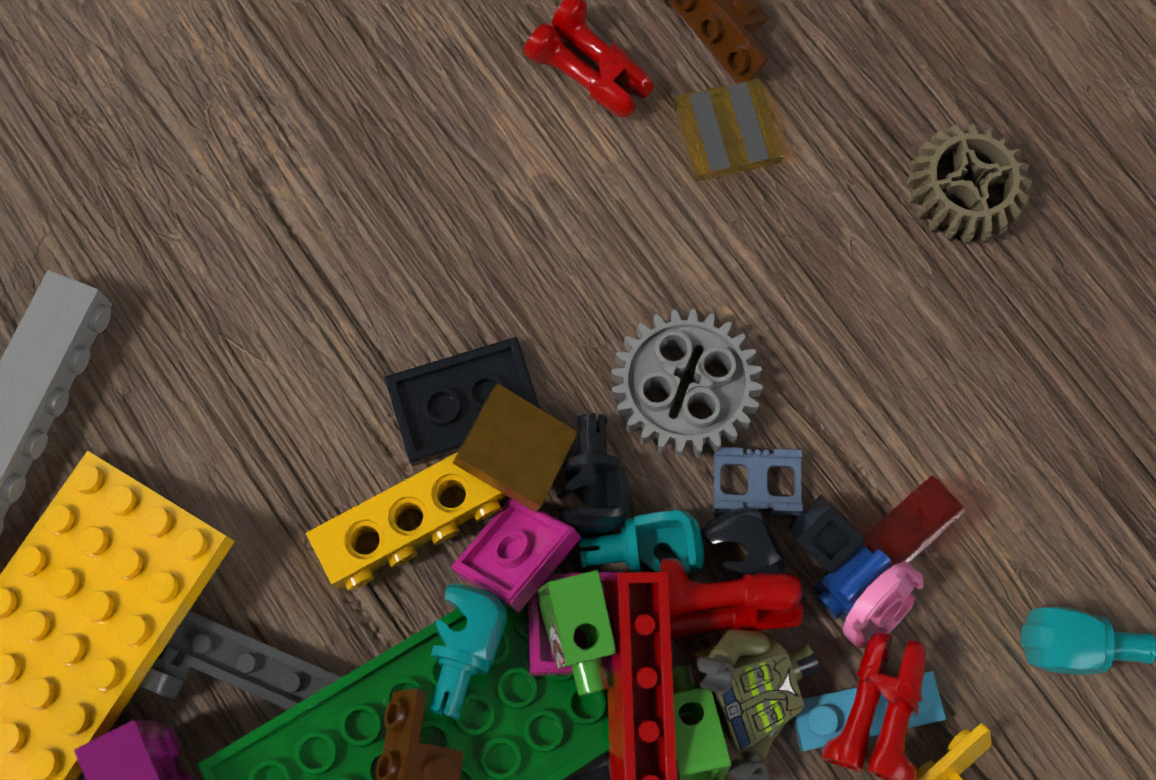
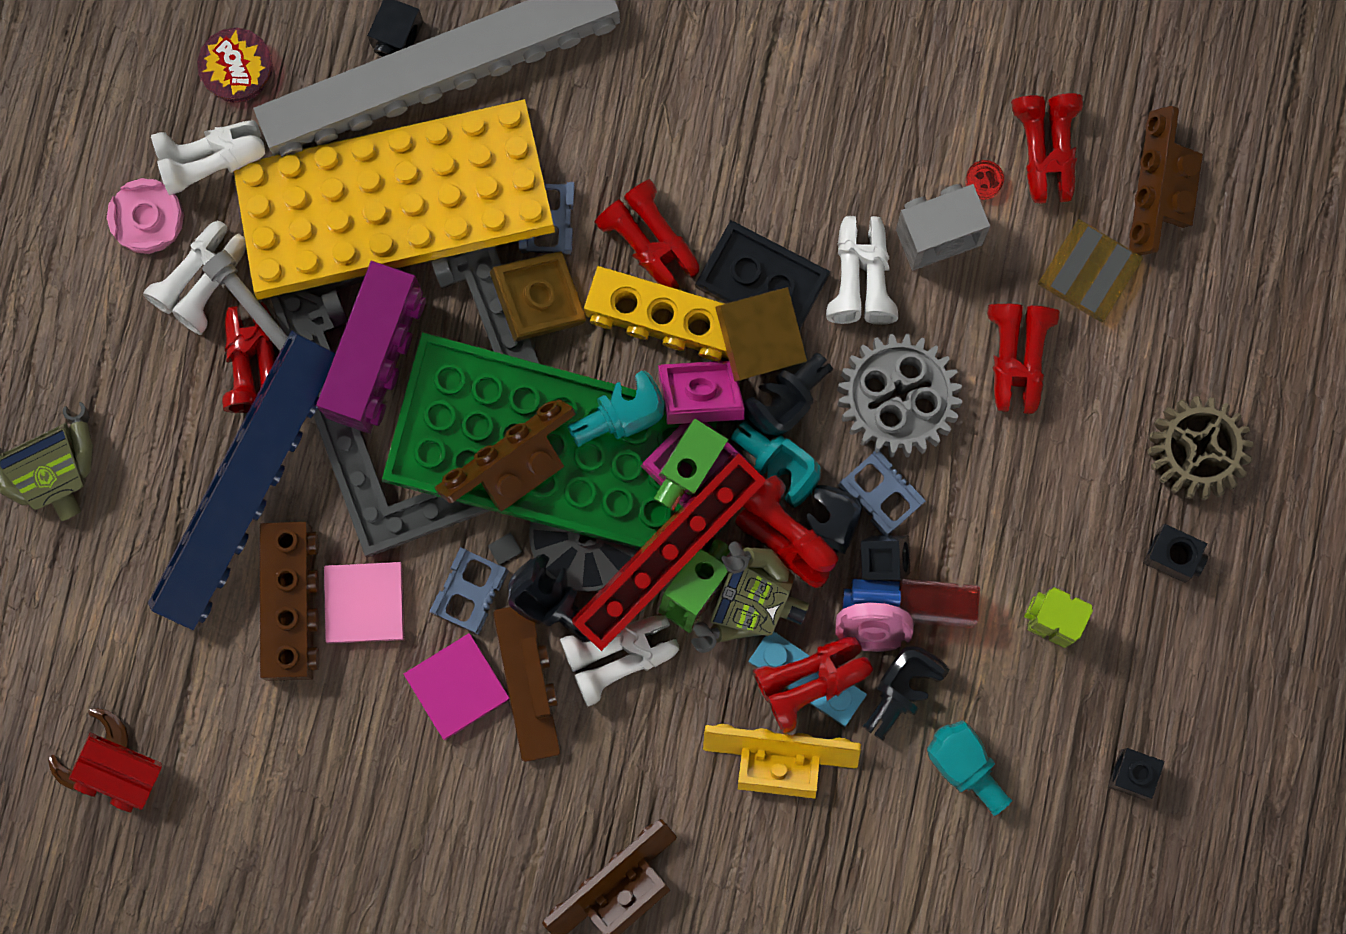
camera: 55 degrees right, 5 degrees up
(229, 525) = (561, 220): none -> sand blue piece
(276, 616) = (537, 296): none -> pearl gold tile
(344, 477) = (653, 255): none -> red piece
(539, 292) = (873, 260): none -> white piece
(565, 139) = (986, 177): none -> clear red tile
(575, 202) = (942, 225): none -> light grey brick
(754, 270) = (1009, 370): none -> red piece
(958, 641) = (895, 689): none -> black piece
(1022, 433) = (1058, 616): none -> lime brick
(1031, 299) = (1159, 557): none -> black brick

